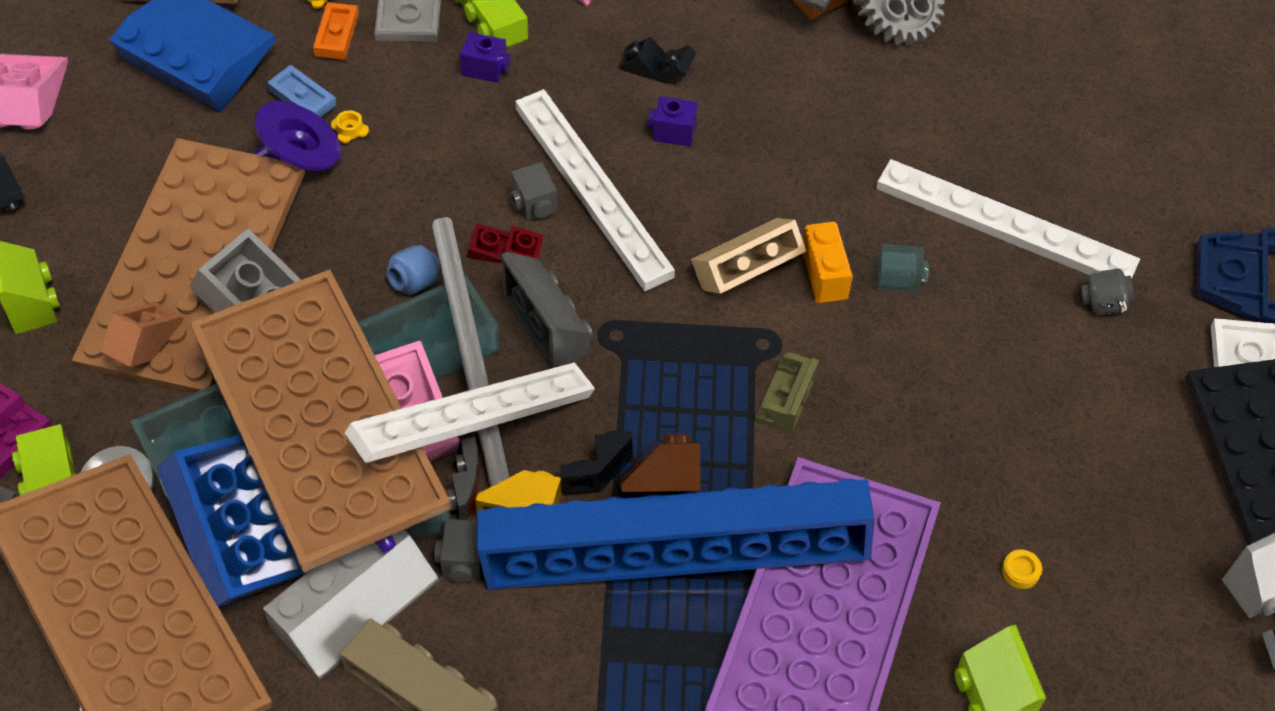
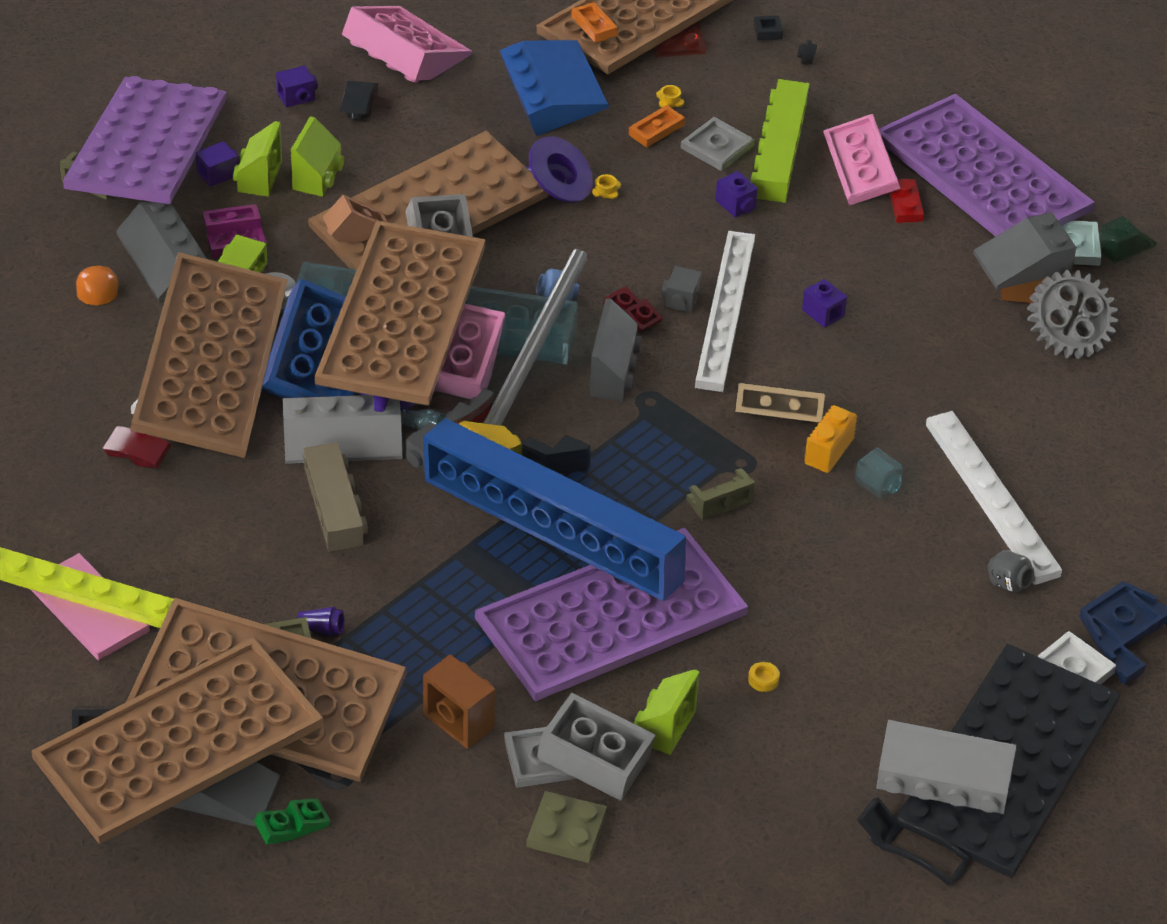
camera: 40 degrees right, 10 degrees down
(299, 89) = (595, 150): medium blue plate -> none
(467, 412) = (497, 366): white plate -> none
(650, 60) = (853, 261): black slope -> none
(665, 466) = (584, 464): reddish brown slope -> none

